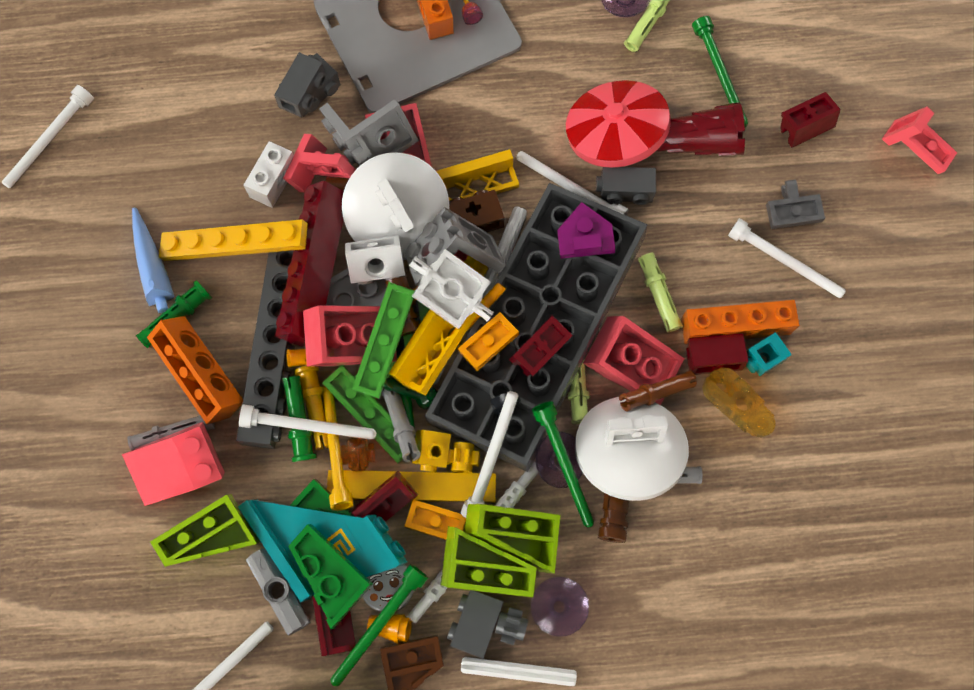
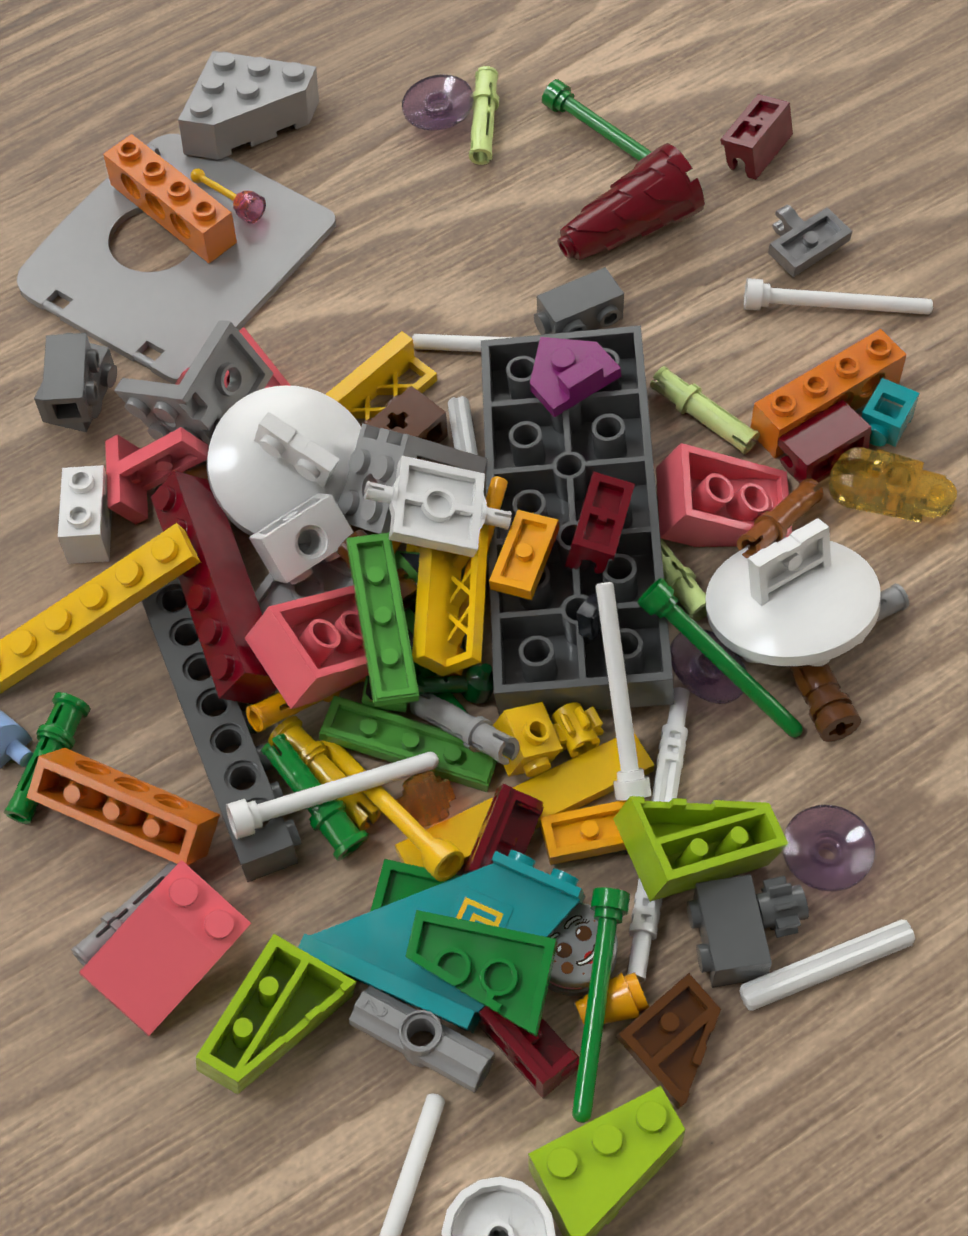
camera: 25 degrees left, 15 degrees down
(518, 532) = (712, 767): lime wedge -> none
(618, 123) = (523, 242): dish -> none
(921, 139) = (905, 94): coral bracket -> none

